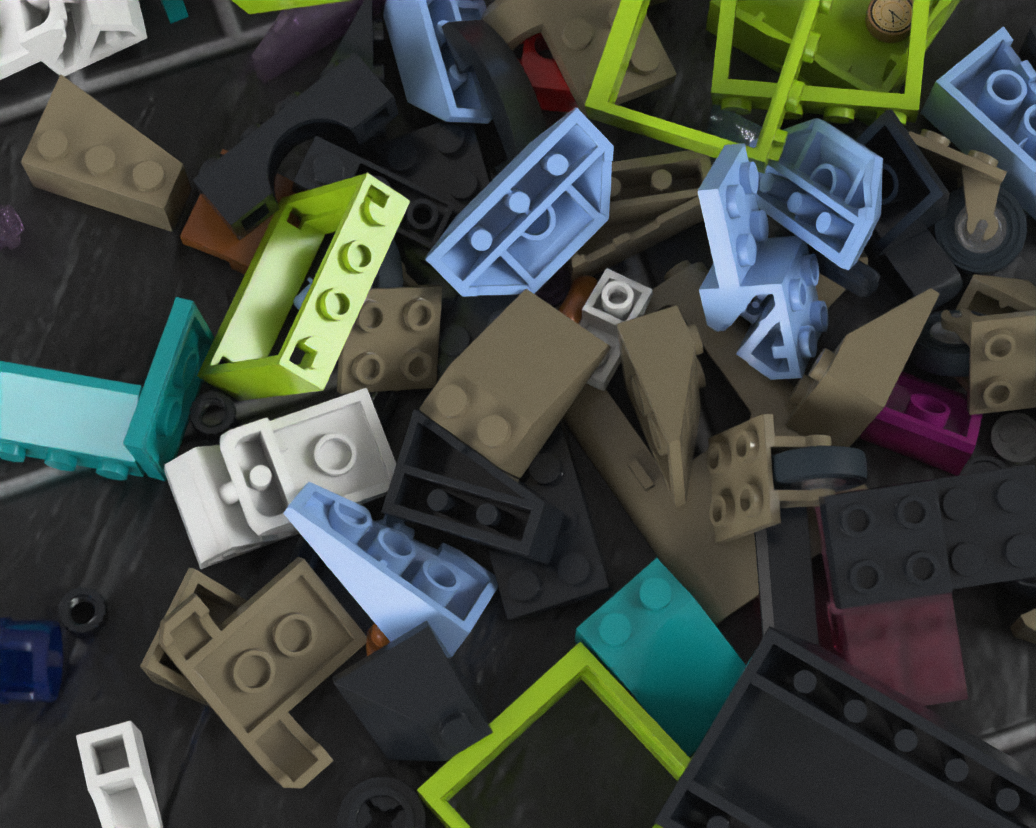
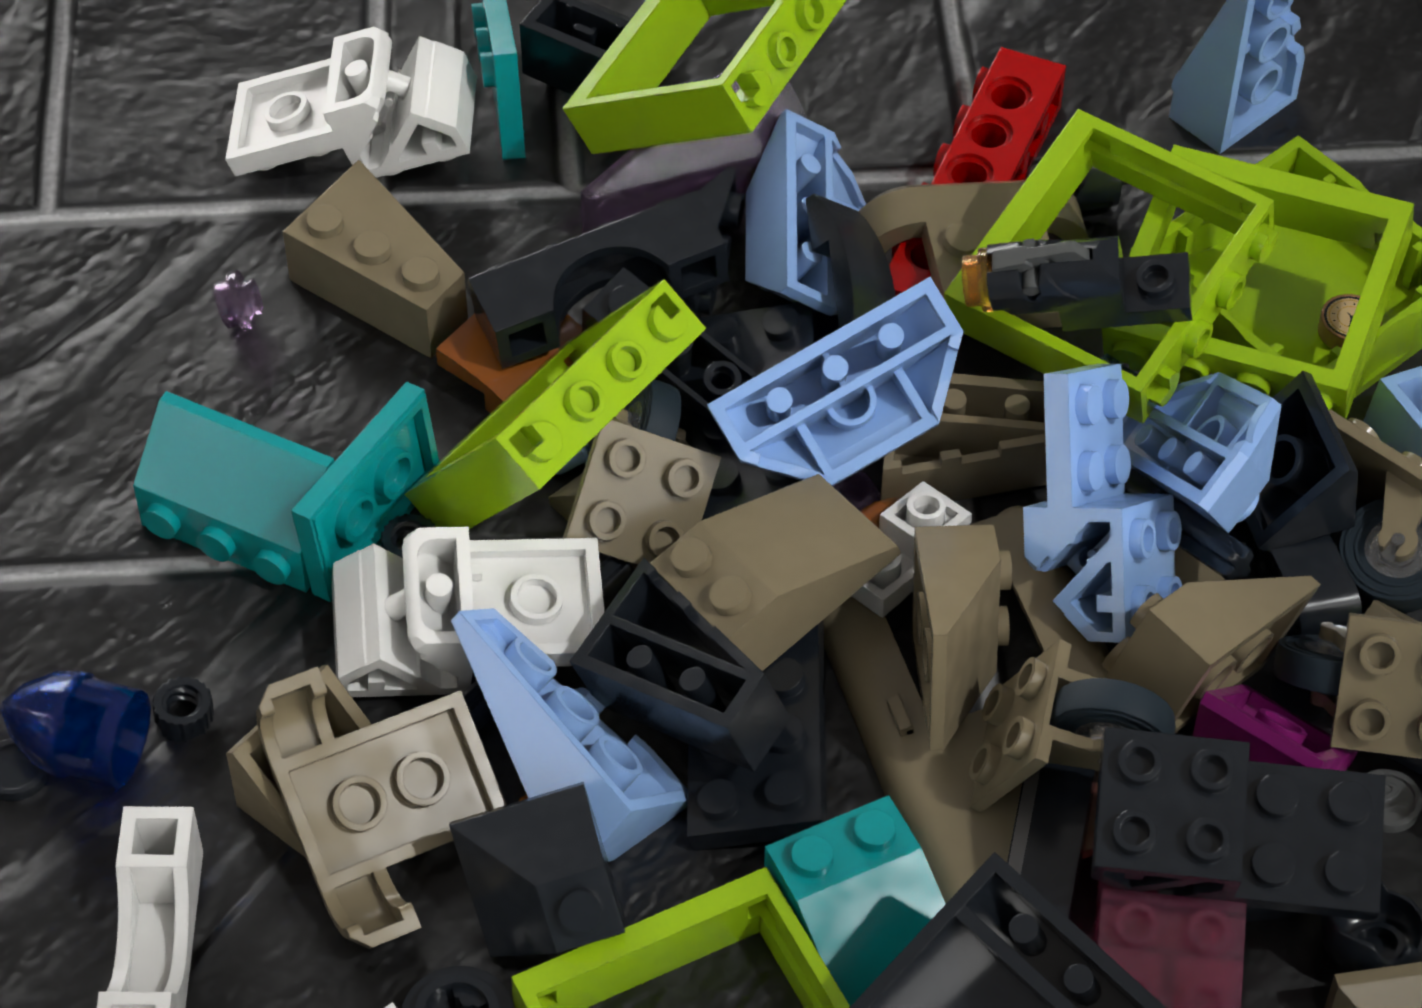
camera: 15 degrees right, 20 degrees down
(696, 82) = (1079, 280): none -> black plate

